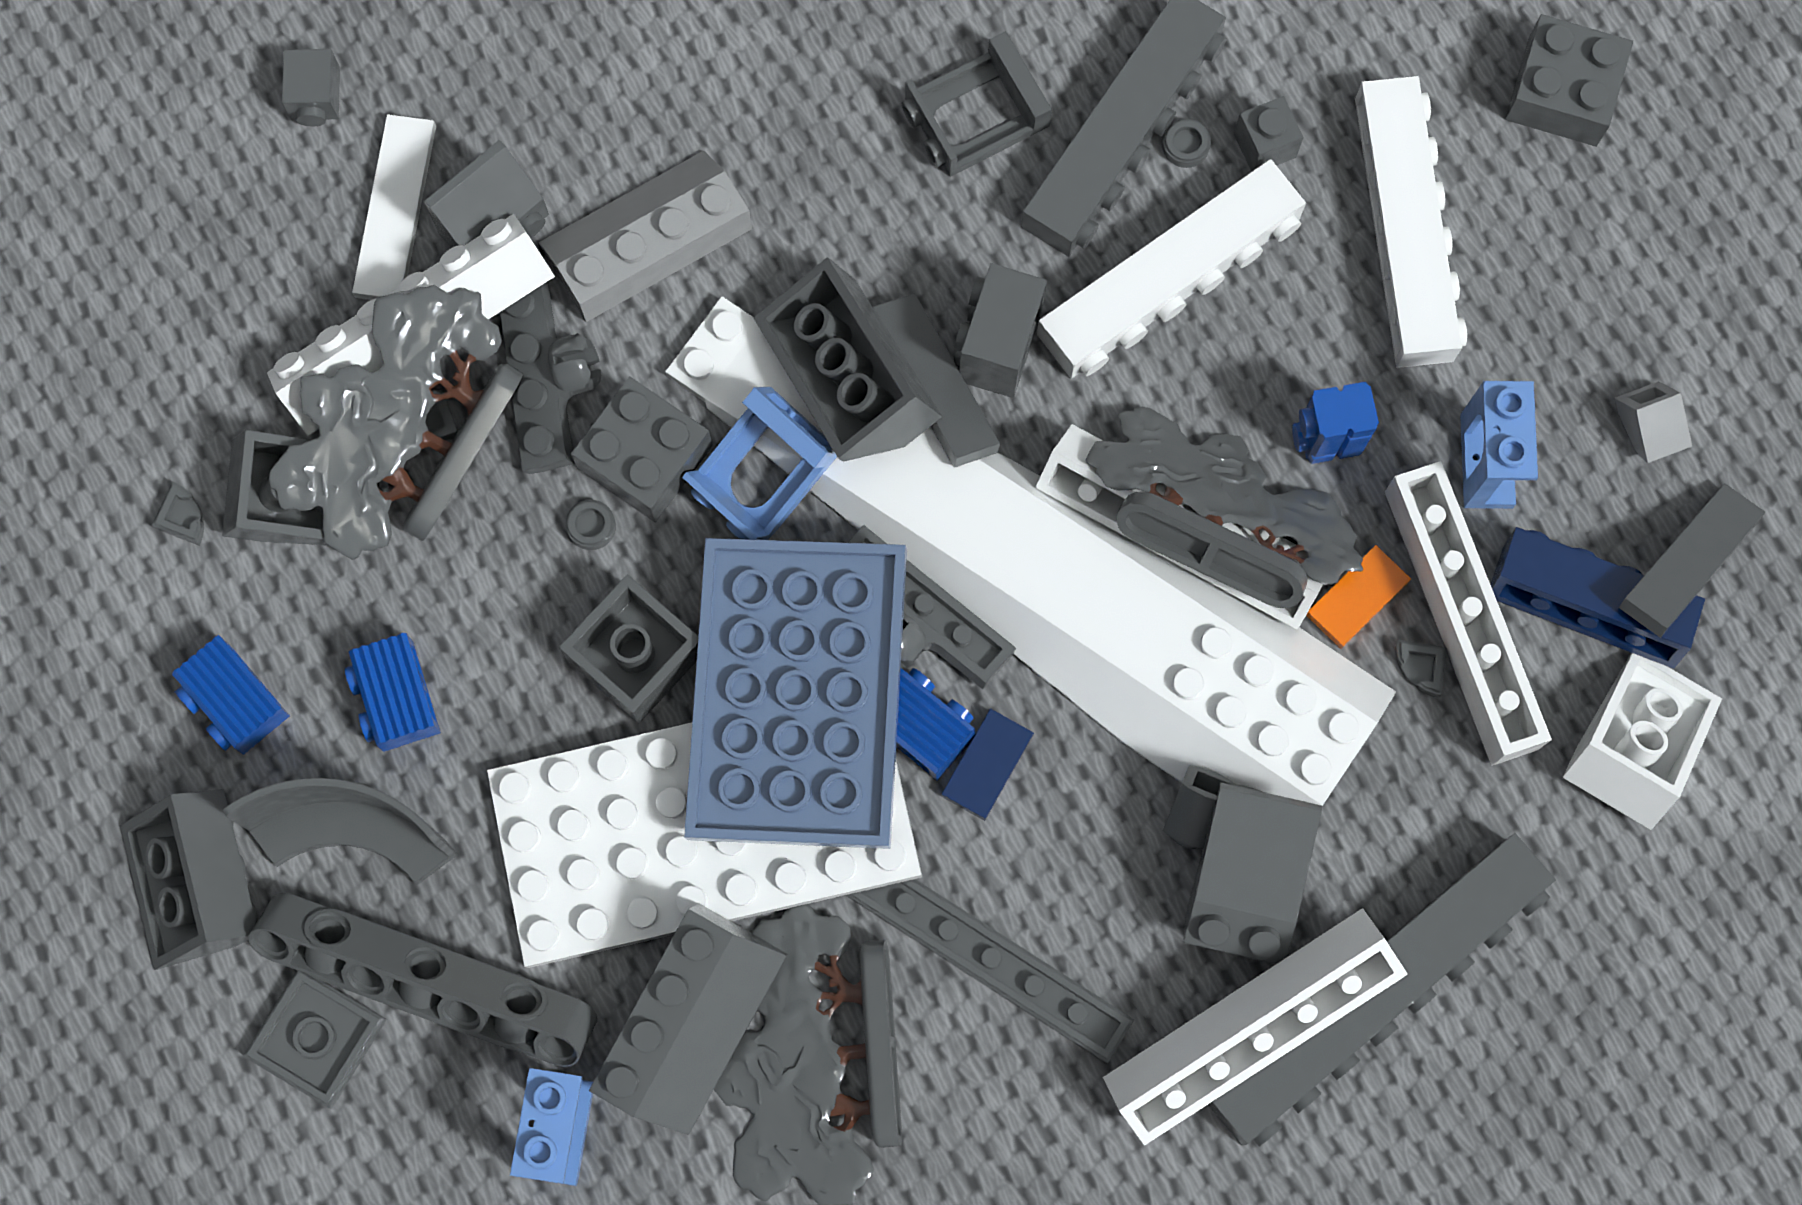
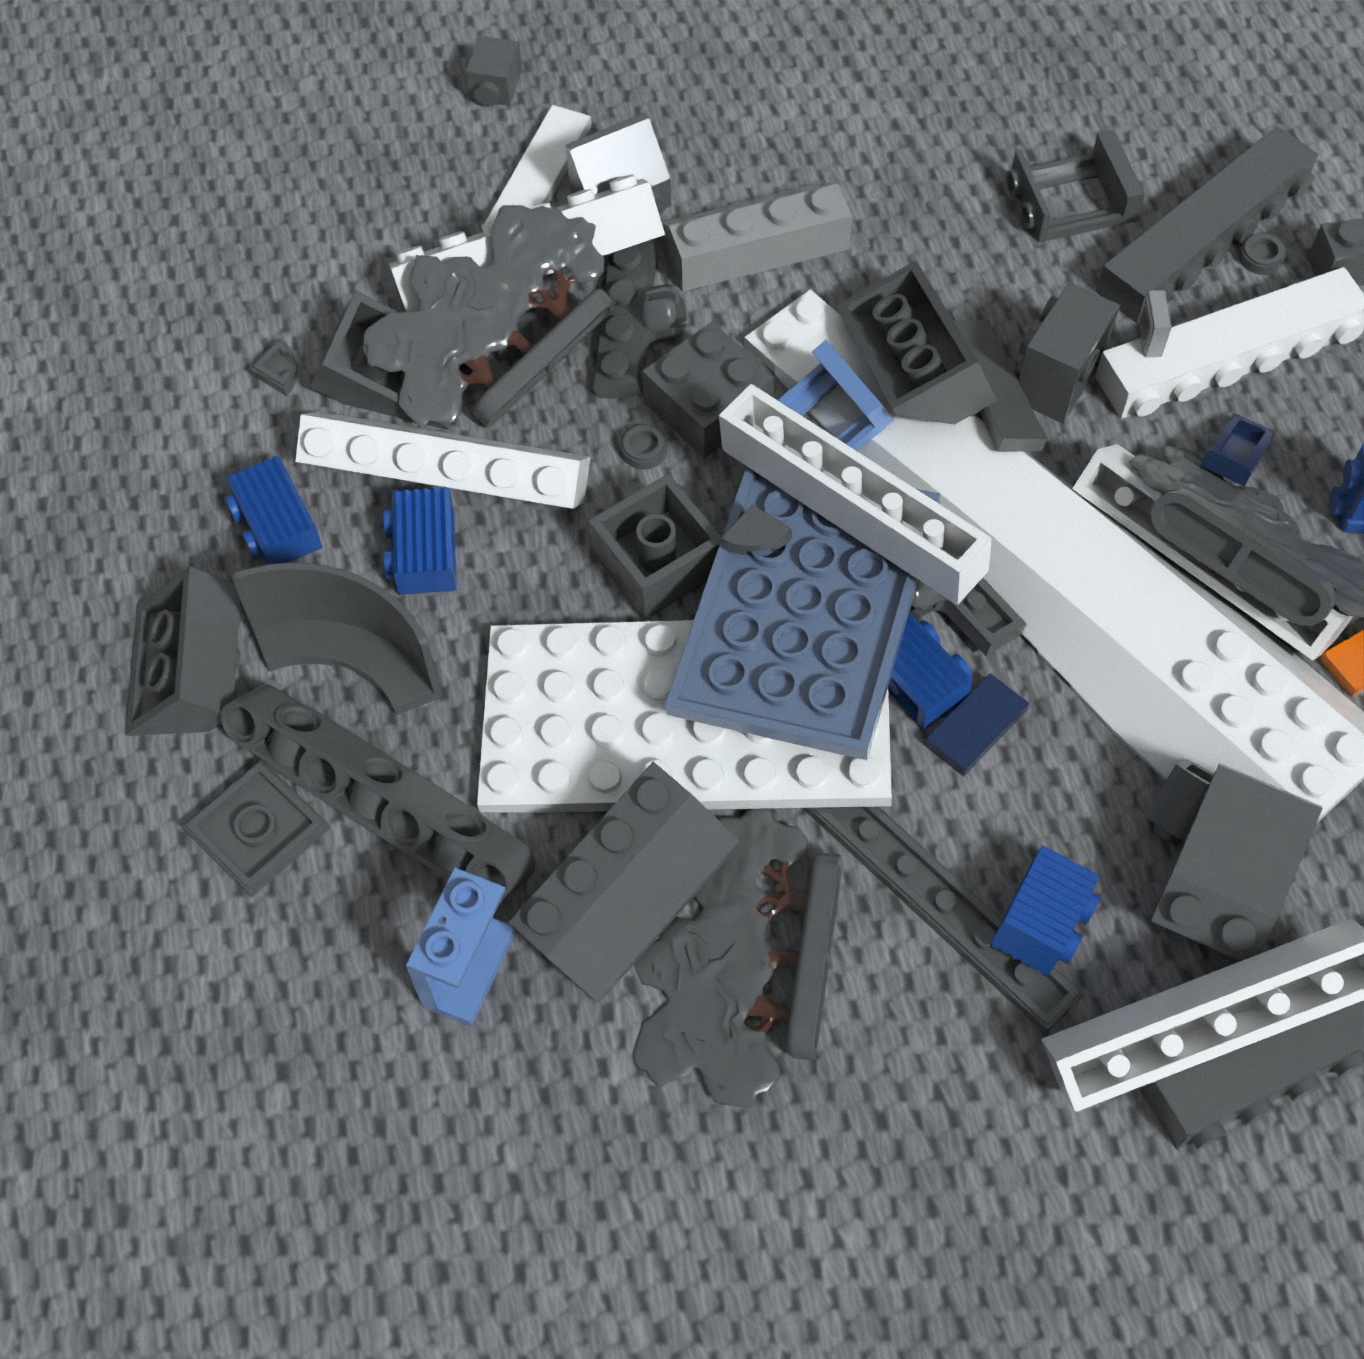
camera: 15 degrees right, 15 degrees down
(388, 597) = (443, 459): none -> white brick
(731, 632) = (756, 532): none -> dark grey tile
(819, 577) = (855, 494): none -> white brick
(1086, 285) = (1154, 323): none -> light grey tile
(1087, 952) = (1046, 912): none -> blue brick
(1193, 399) = (1238, 449): none -> dark blue tile

